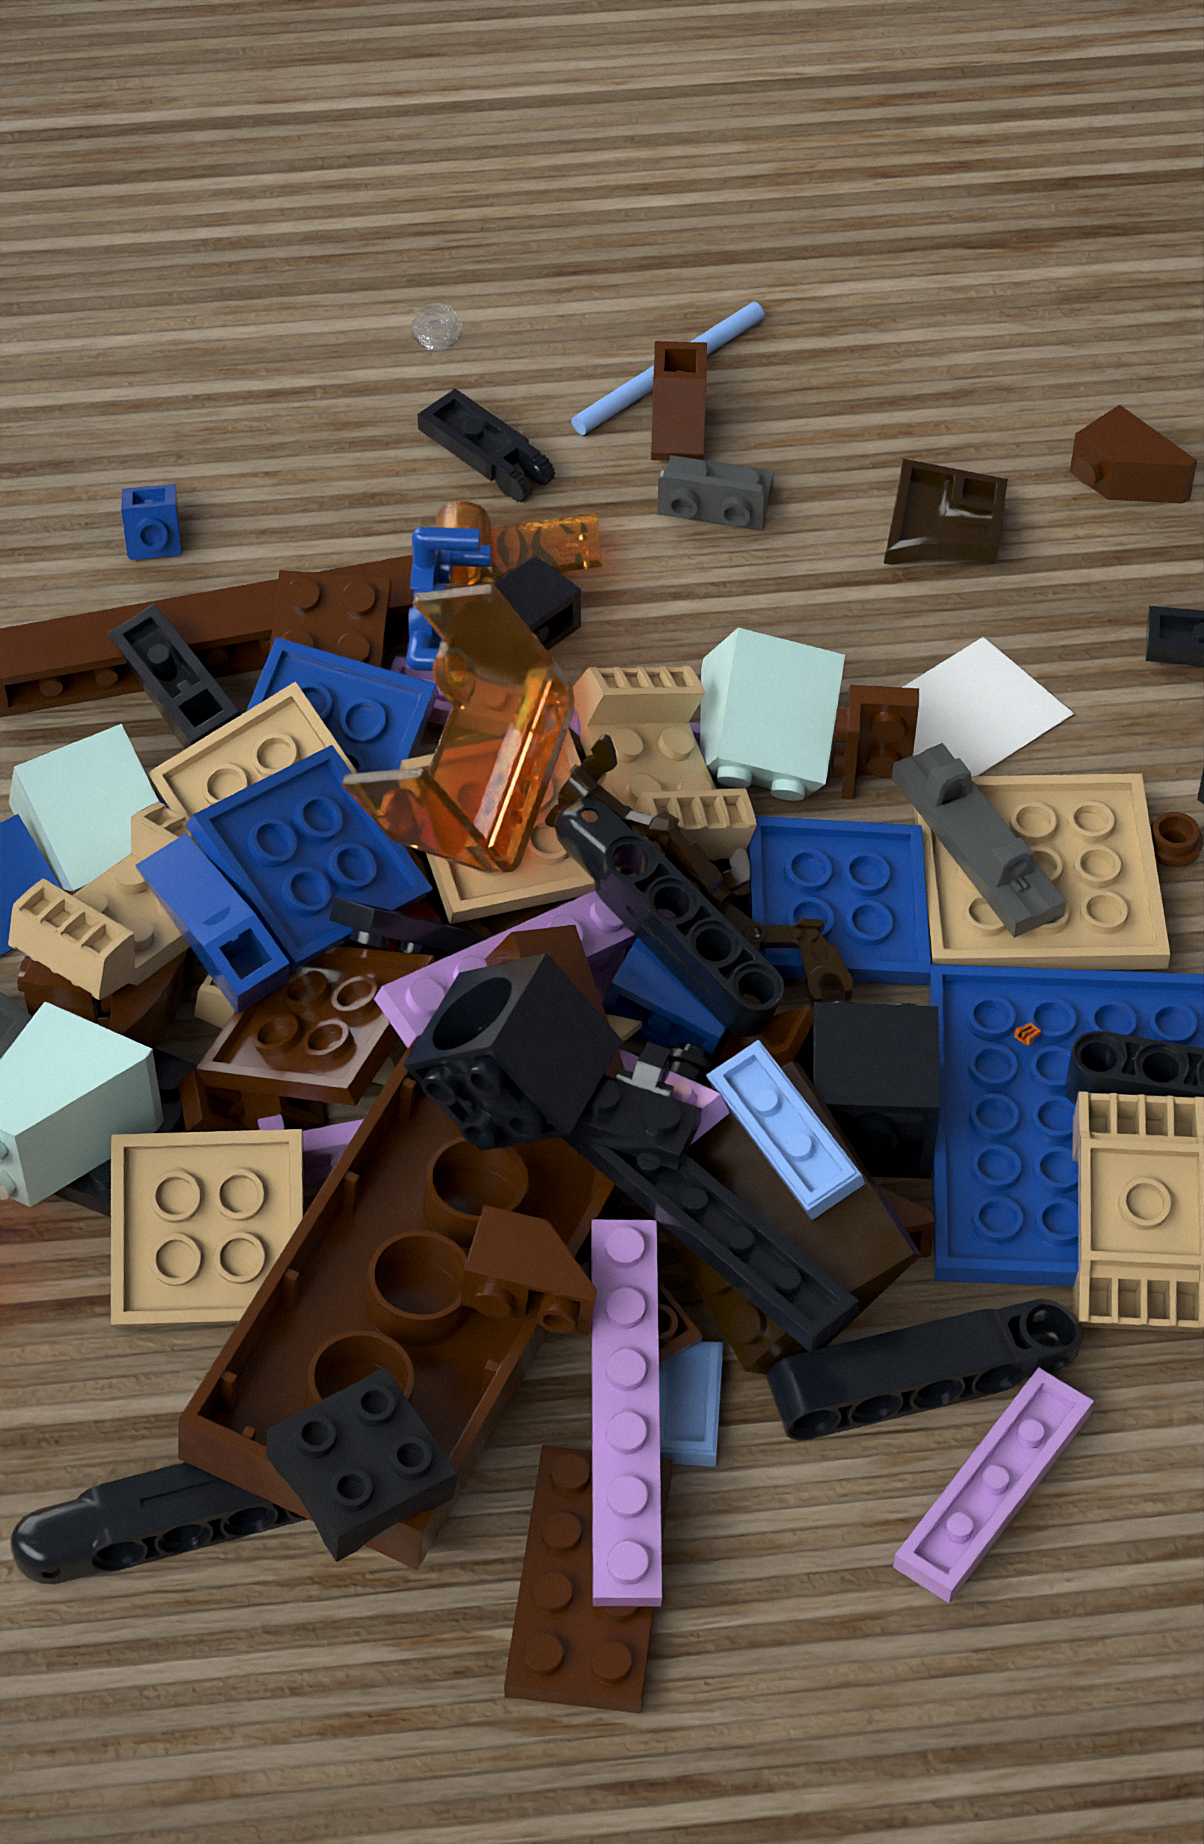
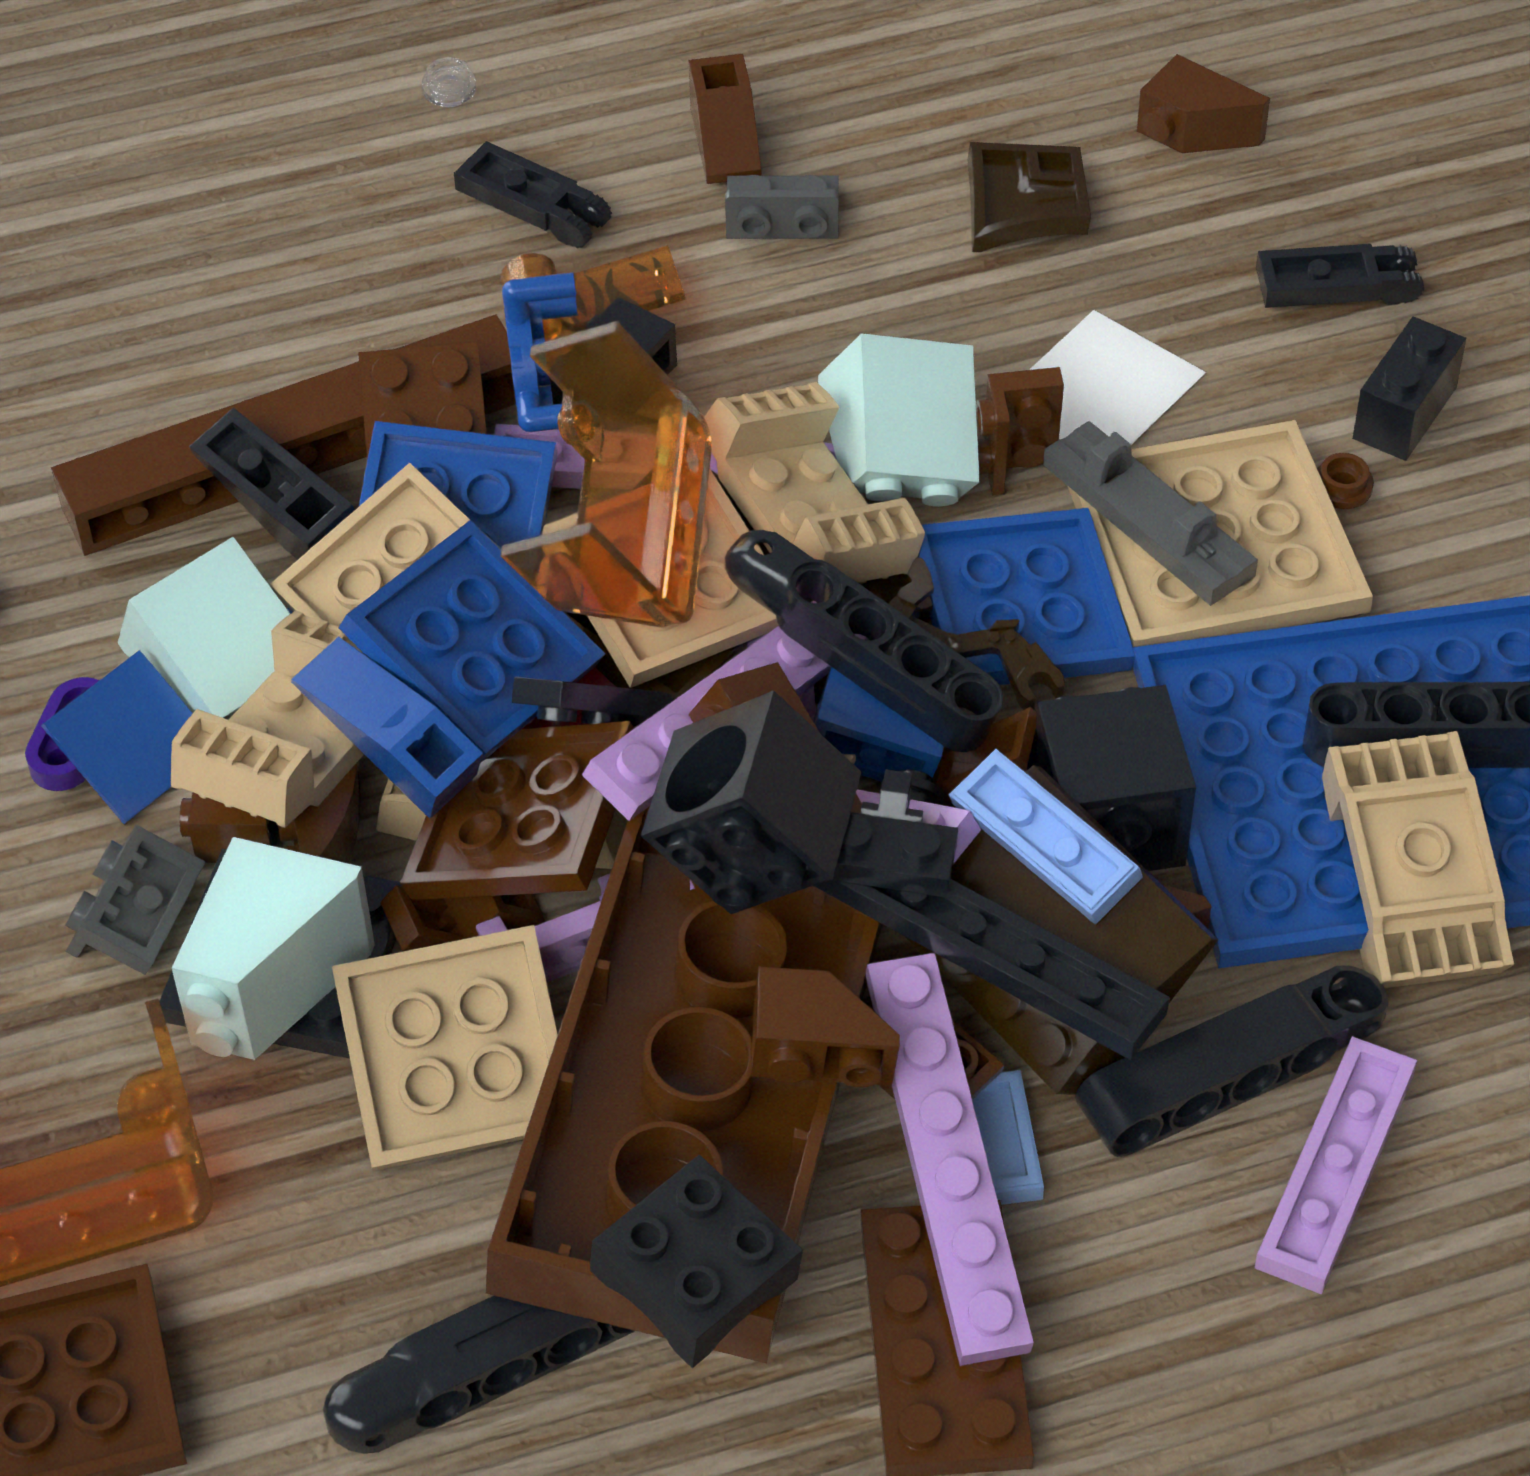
camera: 10 degrees left, 0 degrees up
(151, 521) = (198, 327): blue bracket -> none
(643, 383) = (679, 106): light blue axle -> none
(663, 828) = (837, 550): dark brown piece -> none
(1027, 1034) = (1251, 700): orange piece -> none

